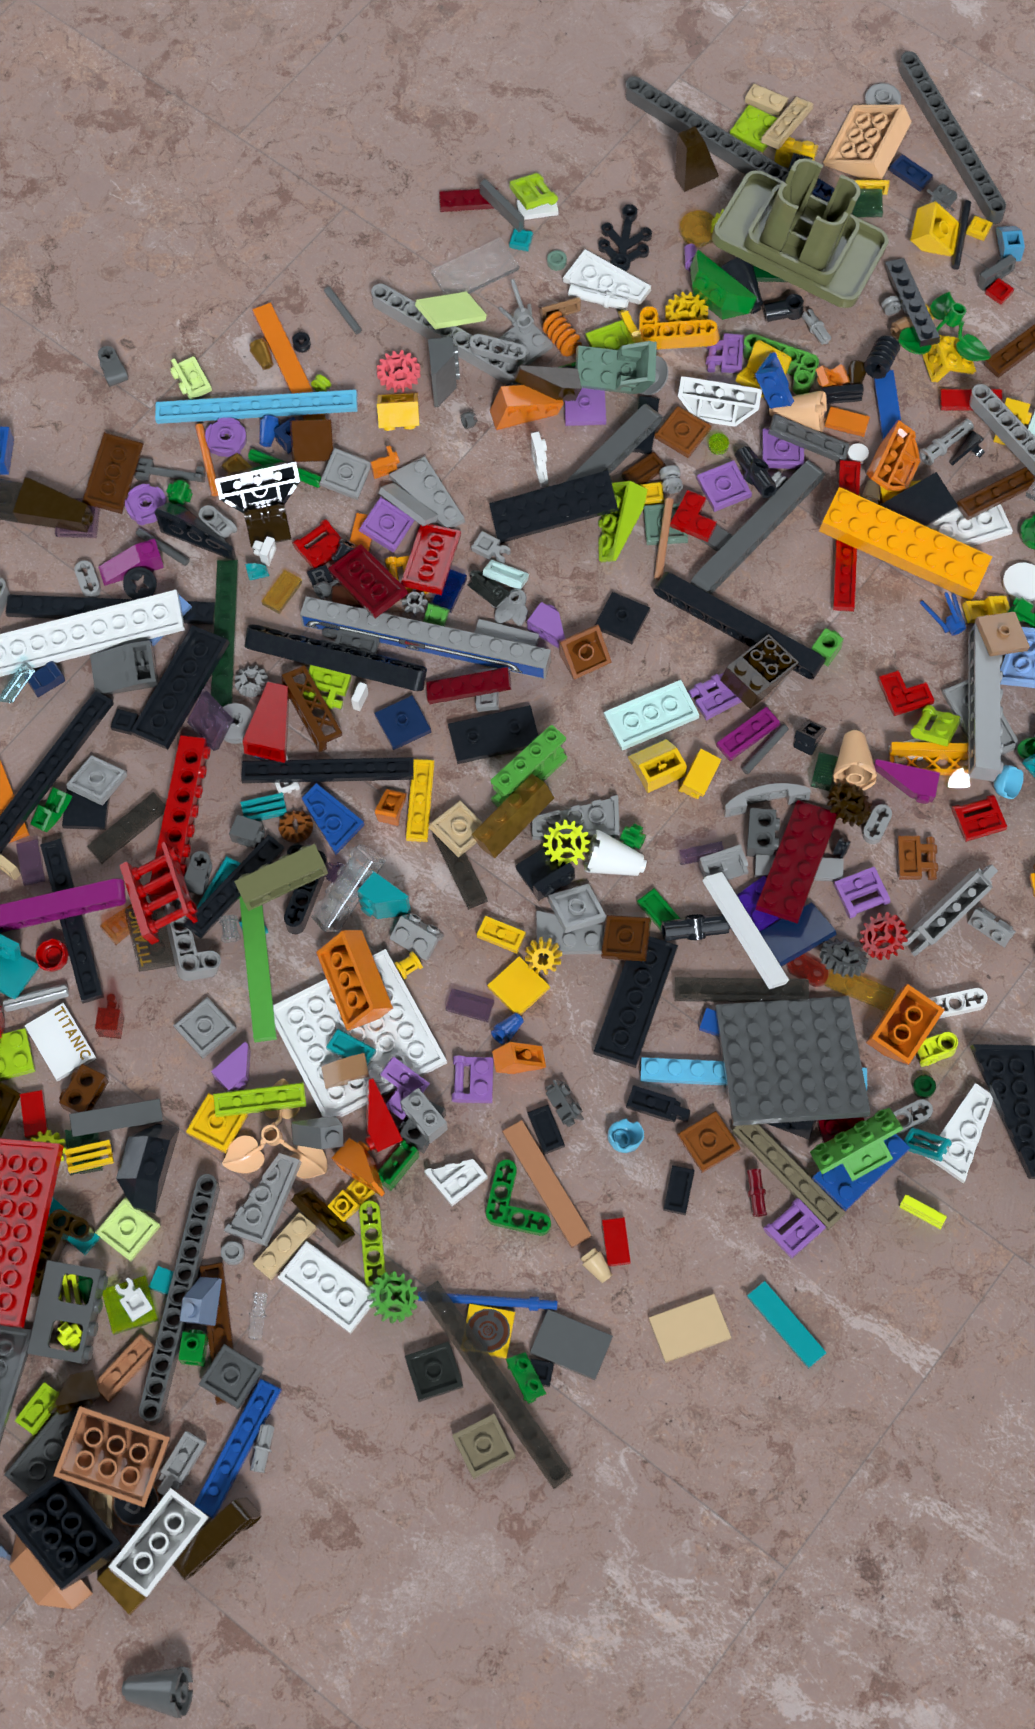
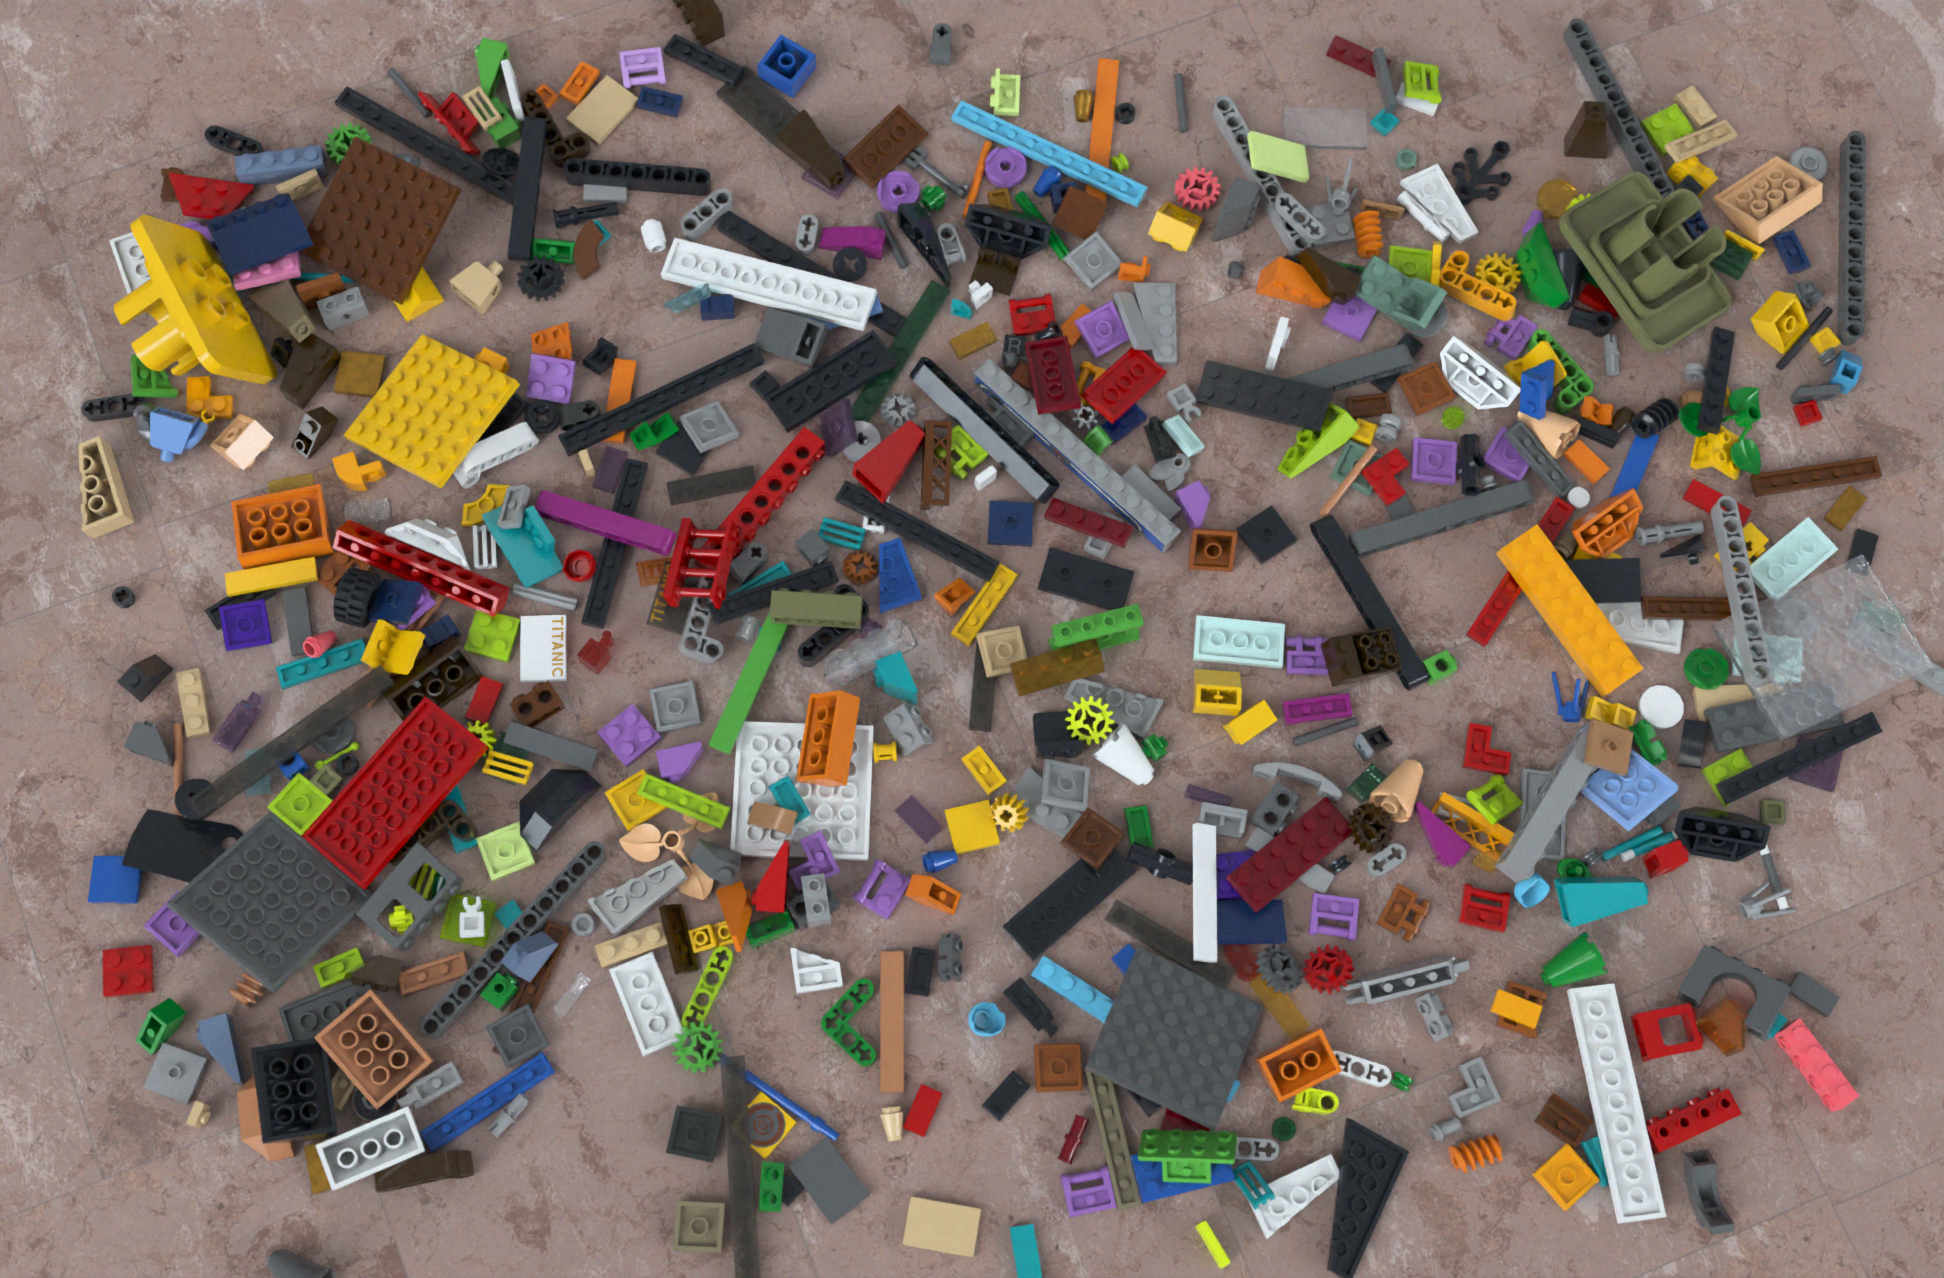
camera: 20 degrees right, 5 degrees up
(179, 1073) = (629, 735): none -> medium lavender plate
(779, 290) = (1596, 300): none -> red slope
(989, 238) = (1828, 356): none -> dark grey bush
(997, 993) = (1401, 1082): none -> green bush

